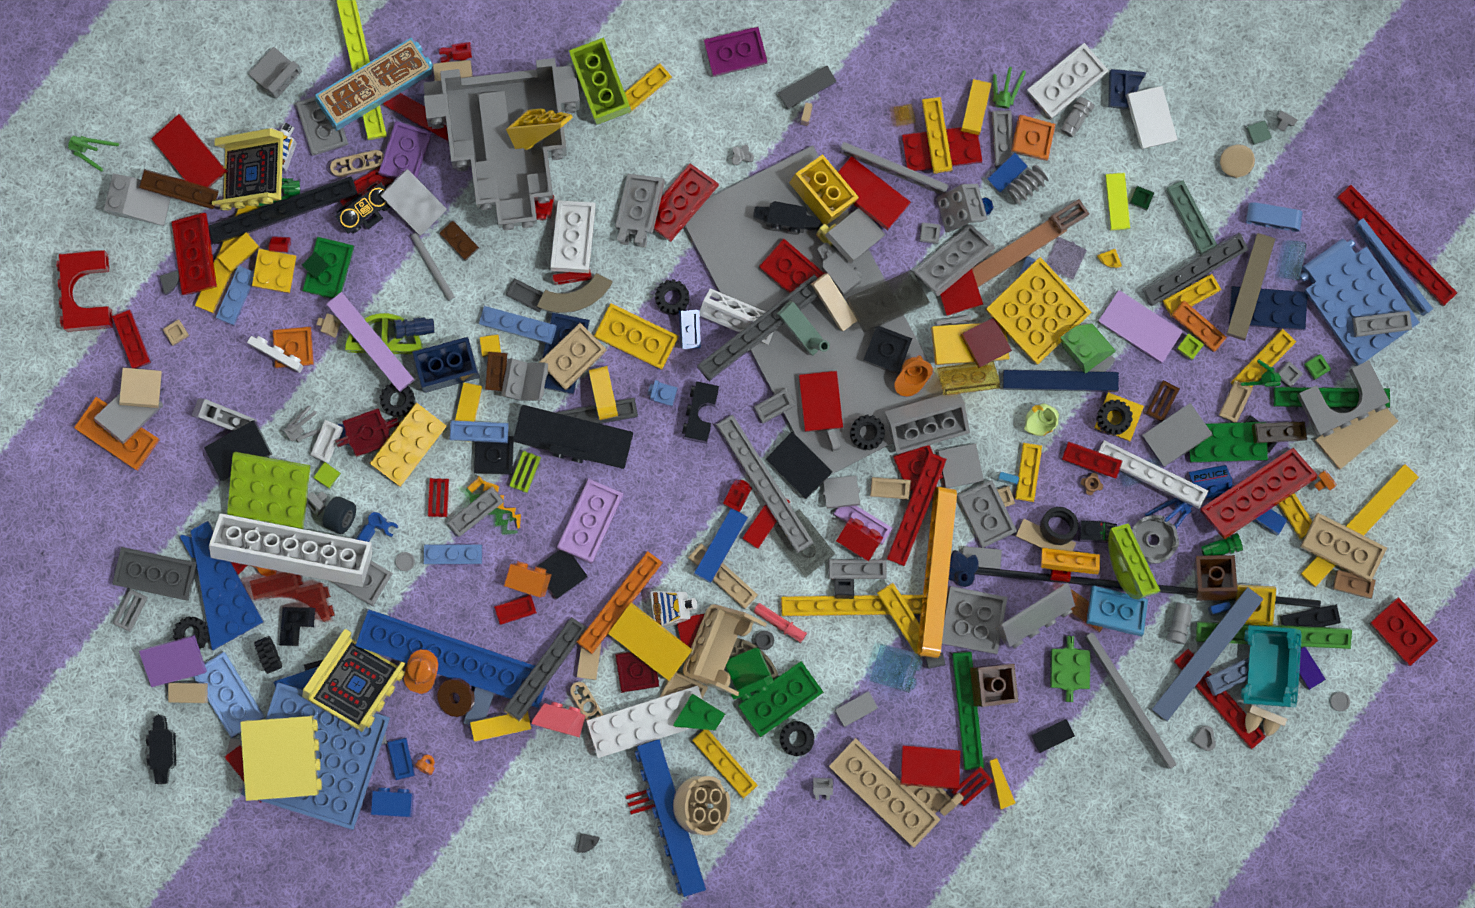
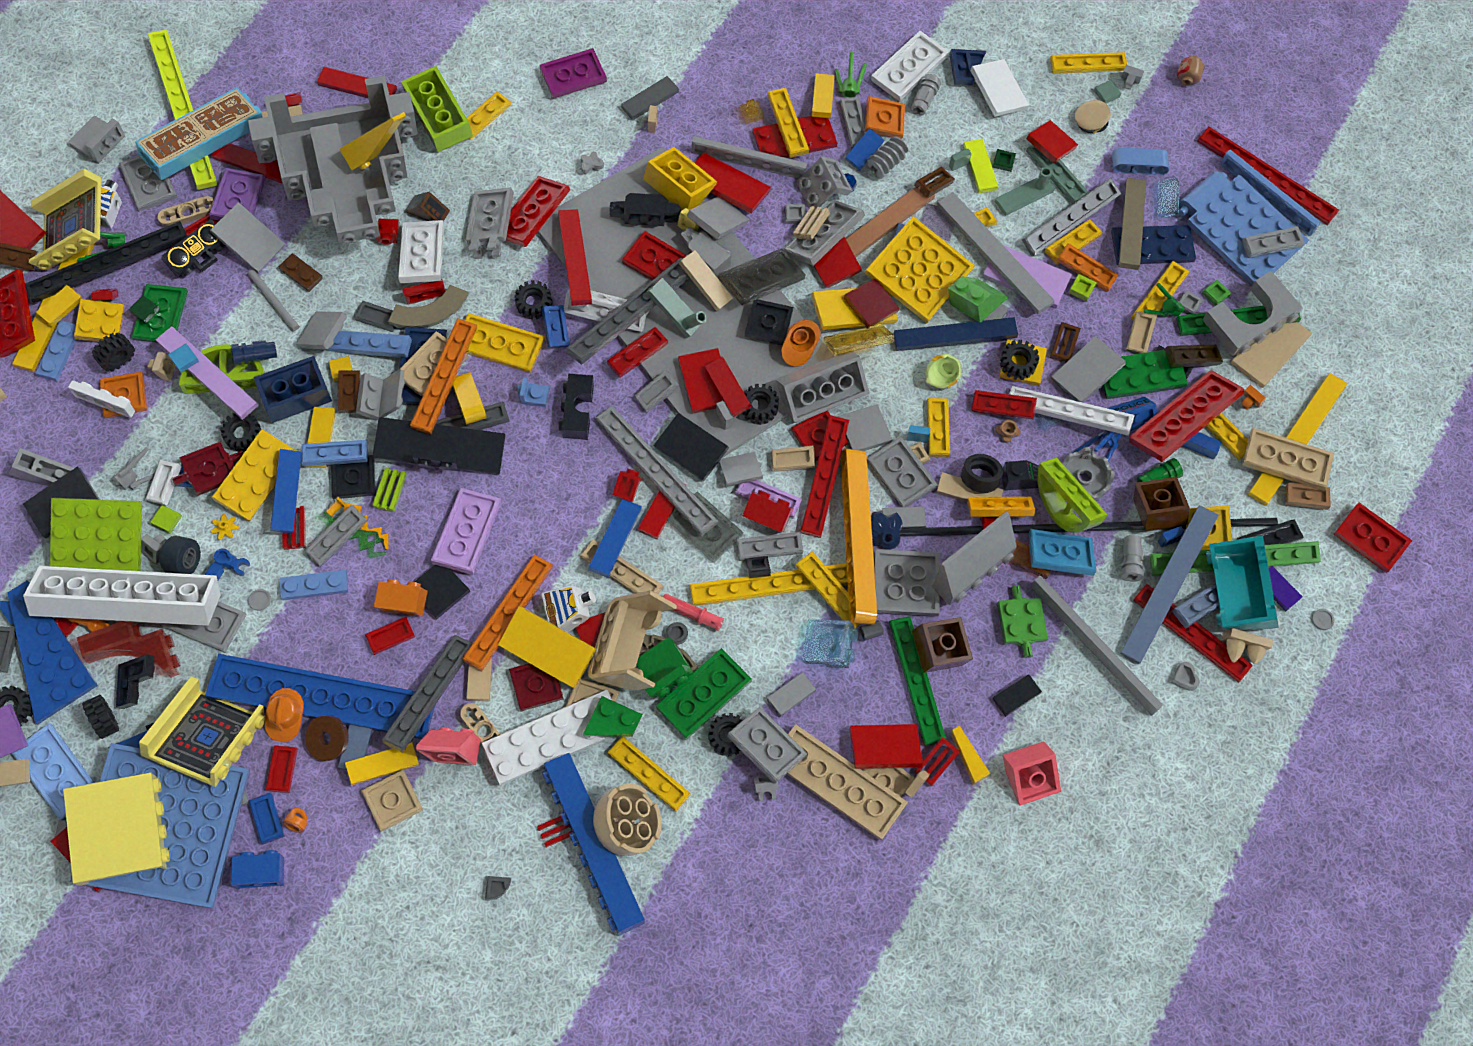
camera: 10 degrees left, 15 degrees down
(287, 307) = (113, 352): none -> black tyre
(351, 327) = (183, 357): none -> dark azure tile
(380, 492) = (224, 526): none -> yellow plant
(416, 717) = (281, 769): none -> red tile
(434, 465) = (285, 491): none -> blue tile
(475, 307) = (321, 330): none -> light grey tile
(506, 757) = (392, 800): none -> tan tile
(524, 39) = (347, 82): none -> red tile
(581, 186) = (427, 207): none -> reddish brown slope
(583, 371) = (443, 376): none -> orange tile
(715, 262) = (575, 257): none -> red tile
(762, 364) = (637, 352): none -> red tile
(828, 755) = (767, 745): none -> light grey tile
(840, 414) = (728, 386): none -> red tile
(941, 247) = (808, 222): none -> tan tile
(1052, 807) = (1032, 772): none -> coral slope
(1098, 194) = (960, 159): none -> sand green tile
(1113, 301) = (995, 253): none -> light grey tile
(1154, 239) = (1026, 193): none -> sand green piece
(1191, 185) = (1052, 141): none -> red tile
(1247, 96) = (1088, 62): none -> yellow tile
(1346, 120) = (1190, 70): none -> medium nougat head

